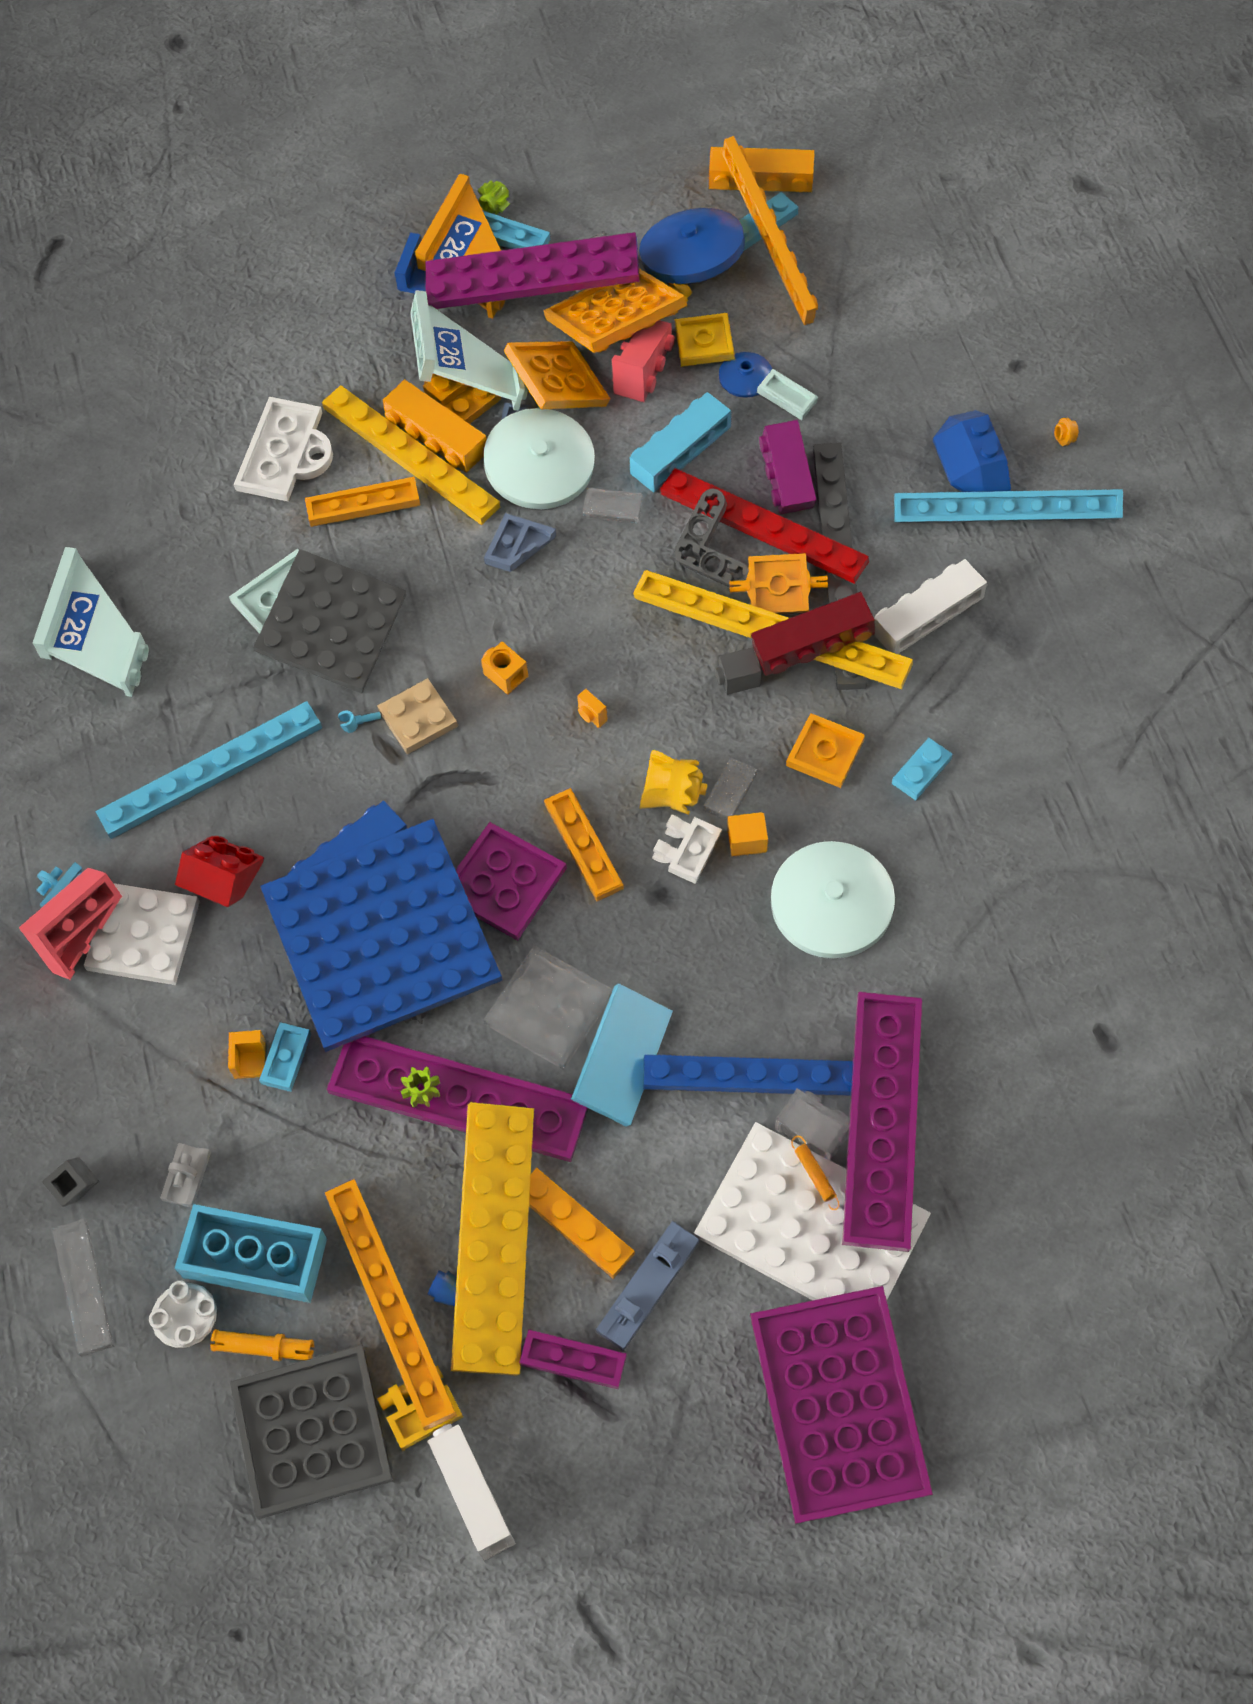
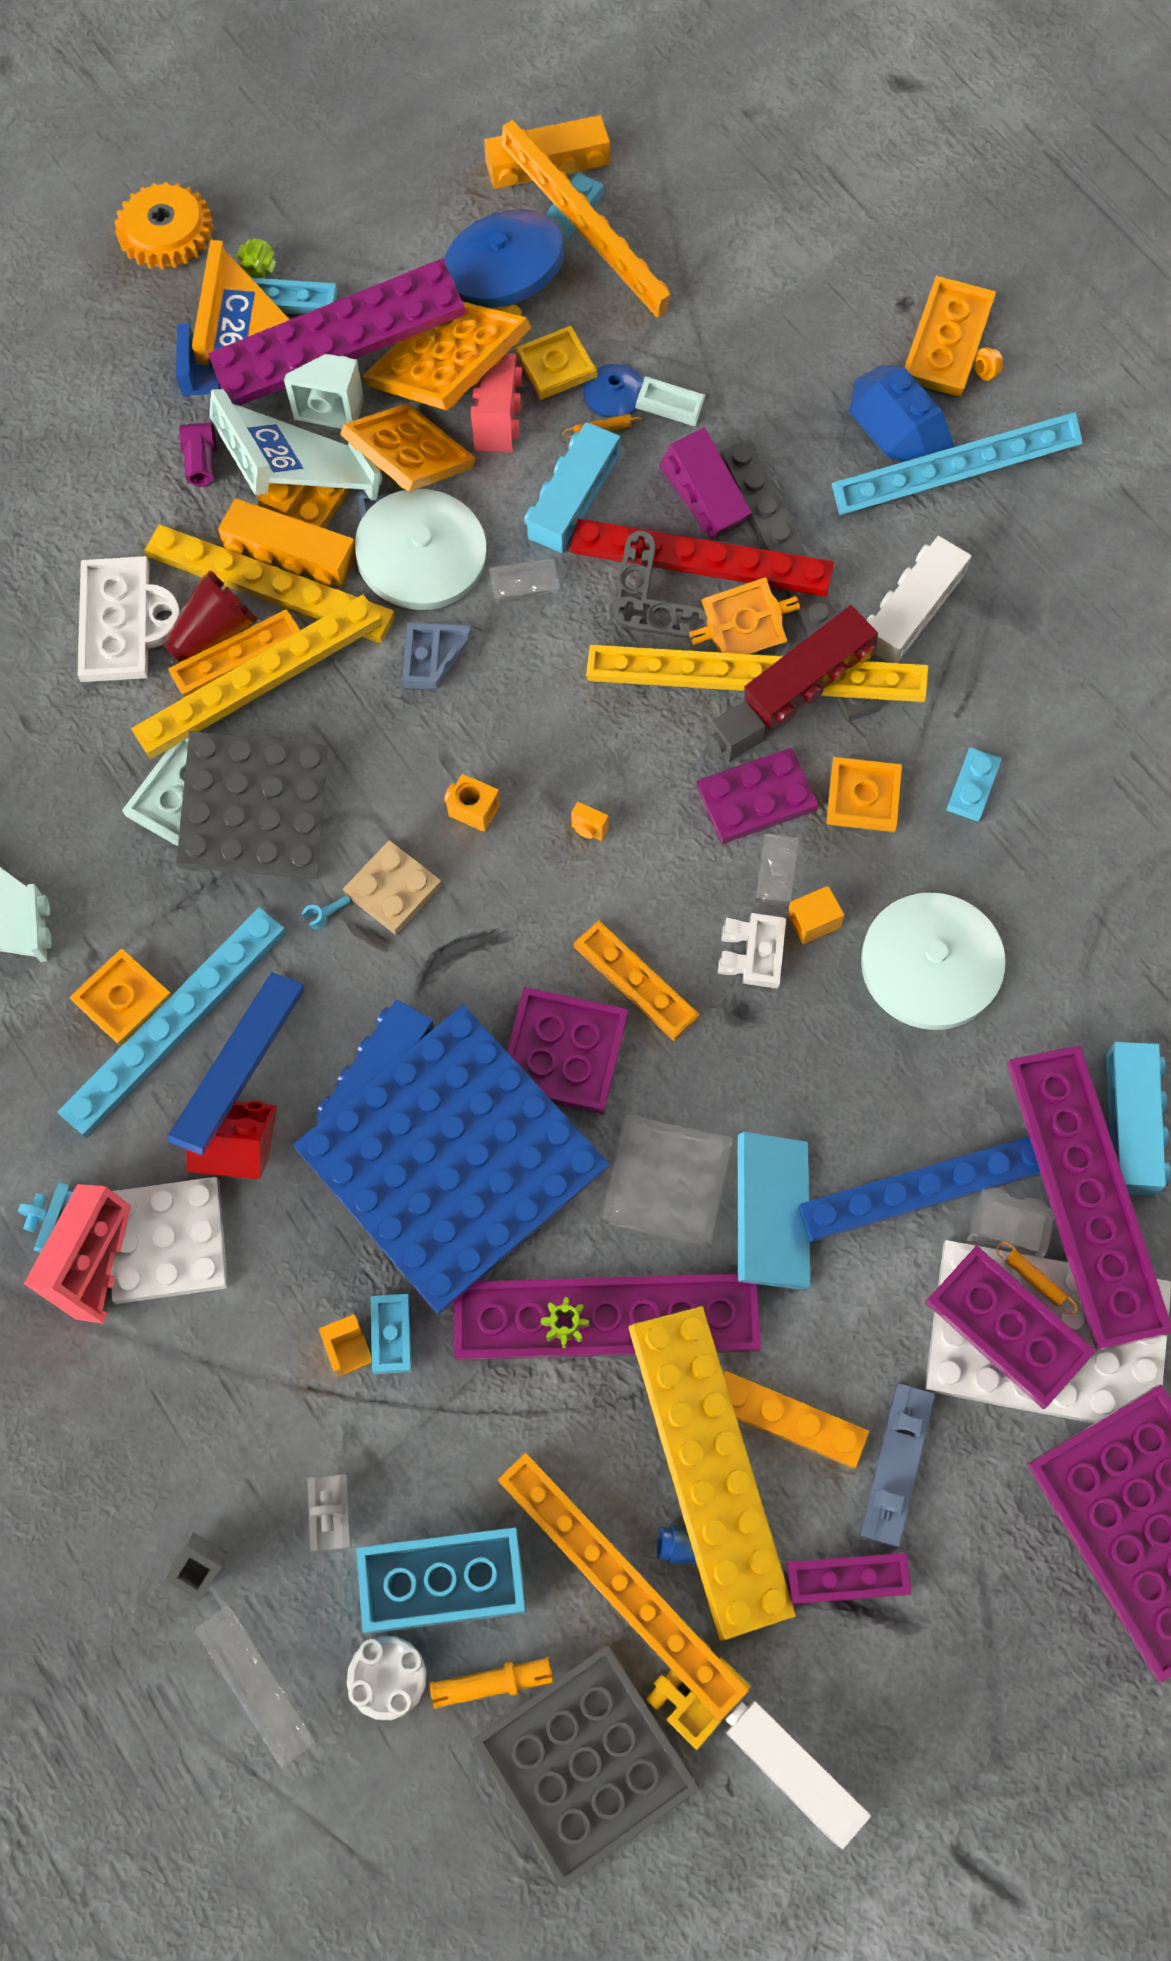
camera: 20 degrees left, 5 degrees up
(175, 738) = (120, 997): none -> light orange plate
(241, 812) = (235, 1064): none -> blue tile
(349, 467) = (207, 619): none -> dark red cone
(371, 522) = (256, 676): none -> yellow plate
(393, 331) = (198, 445): none -> magenta piece
(431, 153) = (164, 225): none -> light orange gear
(508, 314) = (326, 391): none -> light aqua slope
(672, 783) = (712, 882): yellow hat -> none
(730, 400) = (609, 424): none -> light orange piece
(737, 727) = (757, 795): none -> magenta plate
(777, 1203) = (1010, 1327): none -> magenta plate
(951, 1073) = (1136, 1115): none -> medium azure brick
(1041, 400) = (949, 335): none -> light orange plate

